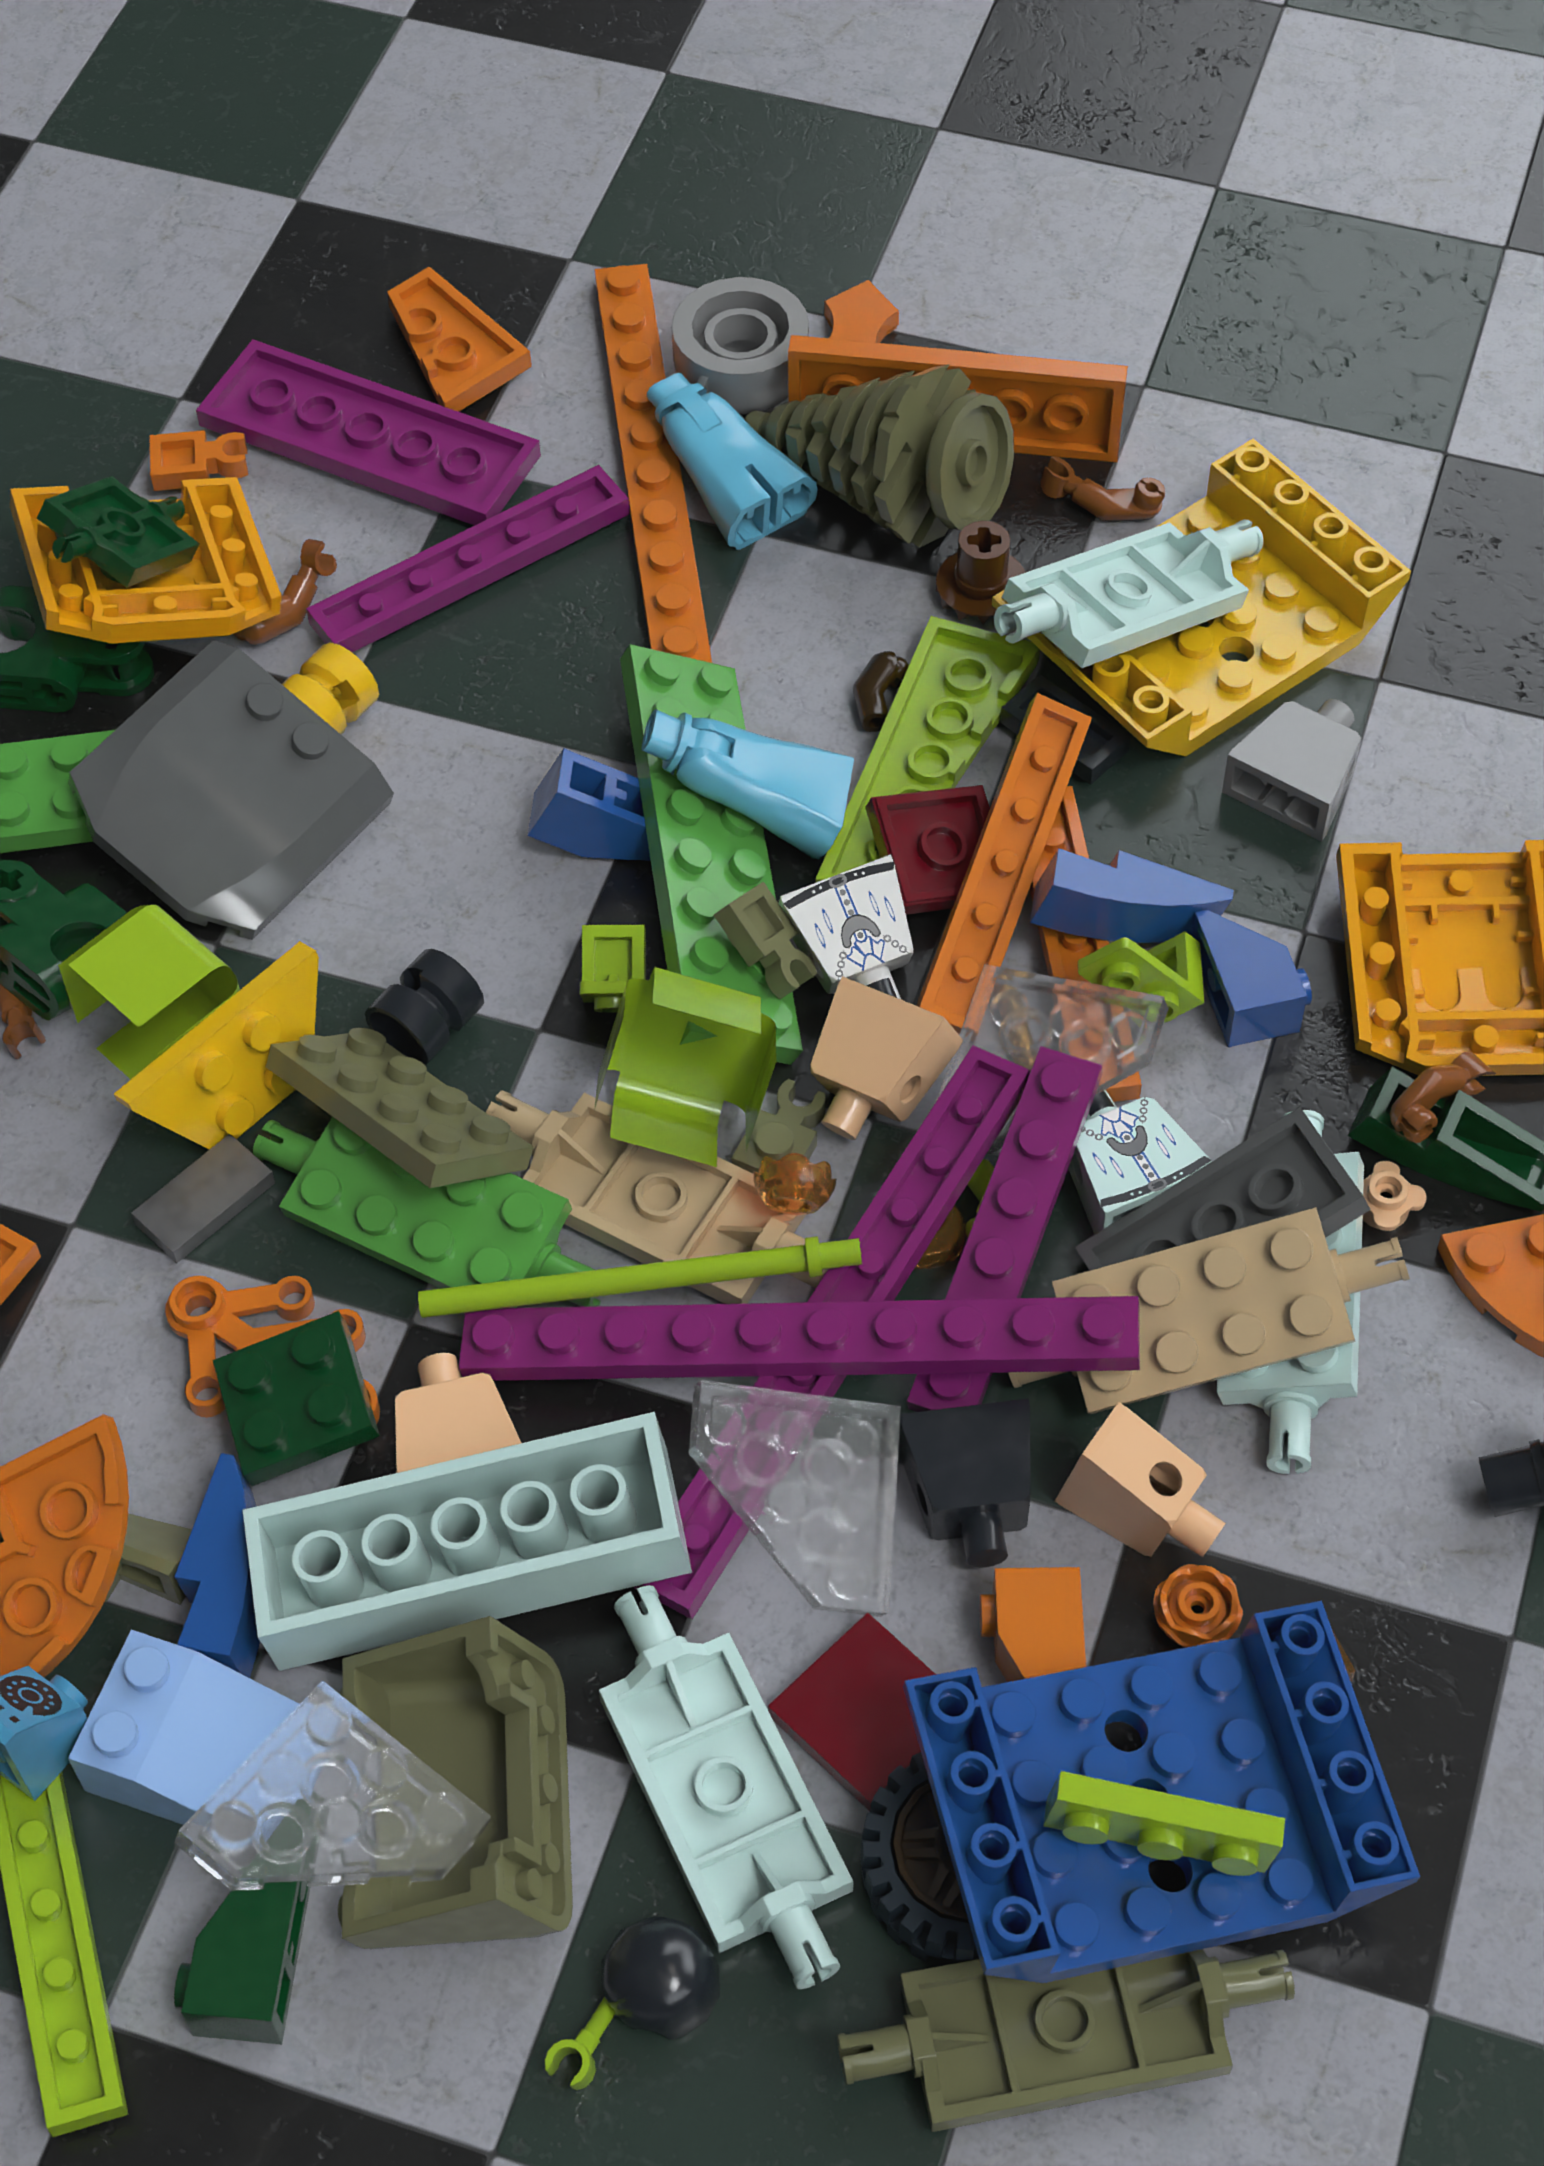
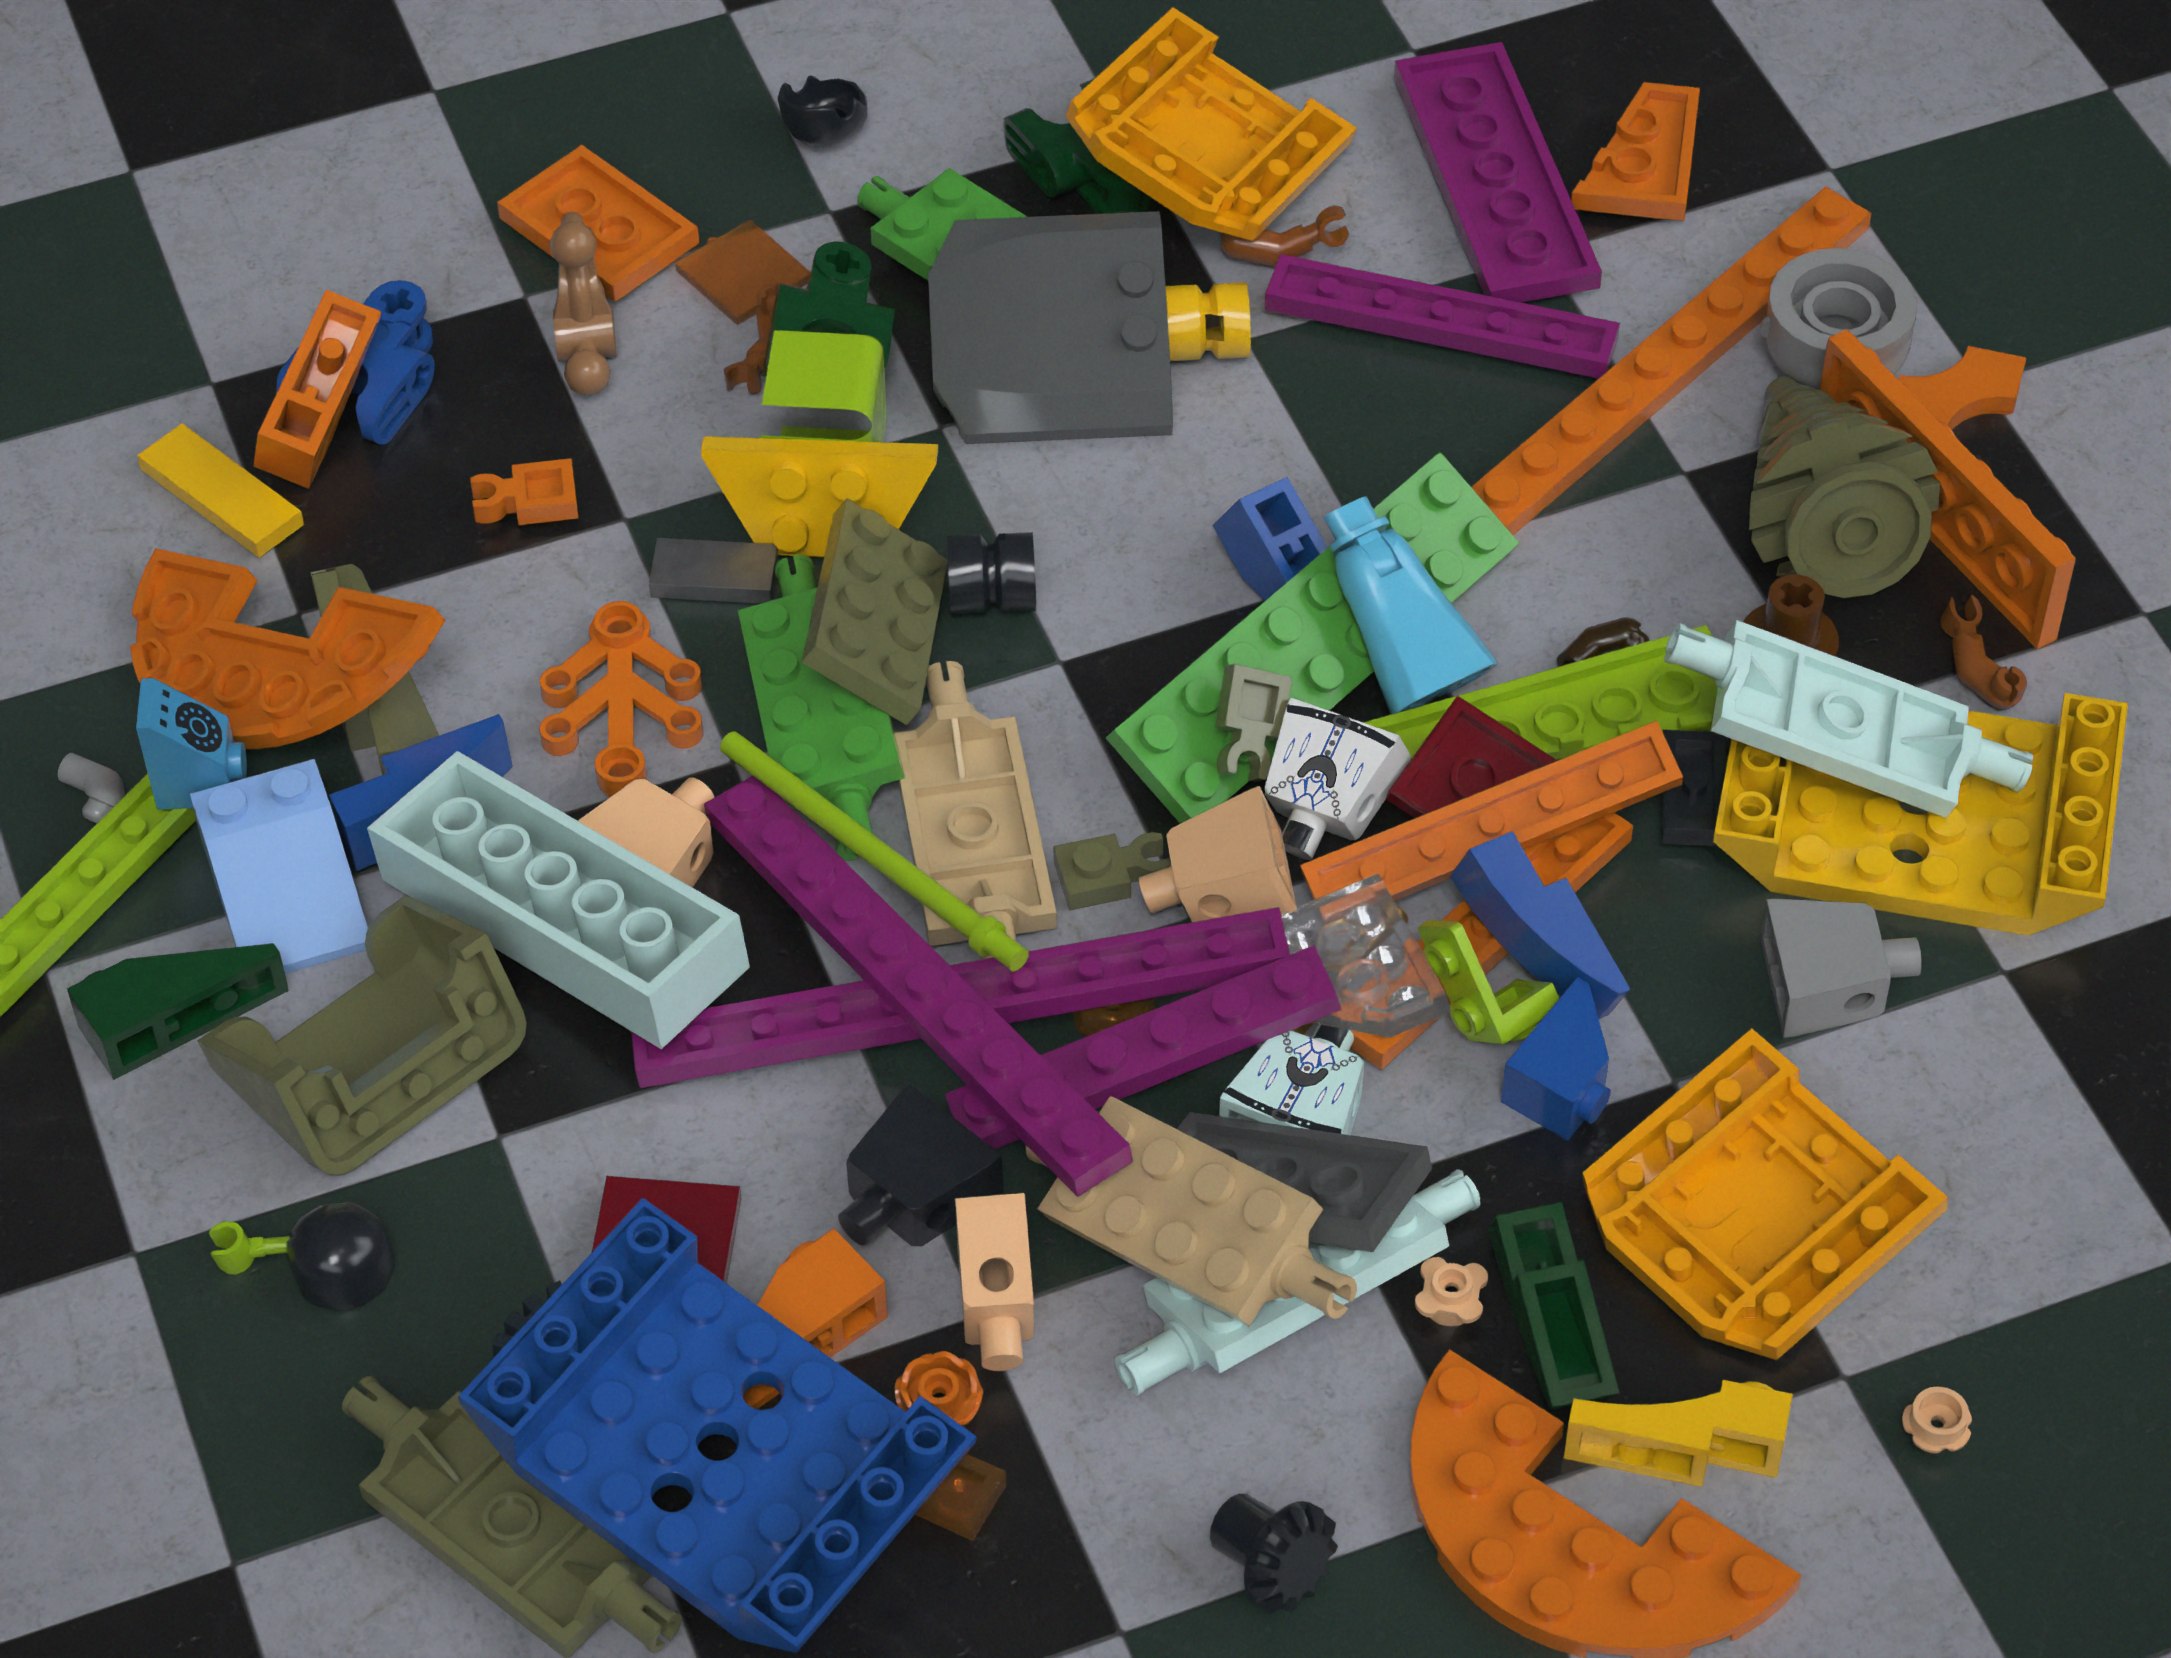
camera: 50 degrees right, 5 degrees down
(118, 531) = (1199, 90): dark green plate -> none
(193, 457) = (1352, 92): orange plate -> none
(295, 1398) = (589, 728): dark green plate -> none
(331, 1807) = (282, 961): clear plate -> none
(608, 961) = (1148, 658): lime bracket -> none
(675, 1092) = (1078, 771): lime piece -> none
(725, 1790) = (516, 1191): light aqua plate -> none
(737, 472) = (1711, 406): medium azure piece -> none
(794, 1184) = (1044, 887): clear orange plate -> none
(809, 1484) = (795, 1066): clear plate -> none
(1163, 1824) = (682, 1445): lime plate -> none
(1412, 1108) = (1530, 1237): dark orange arm -> none

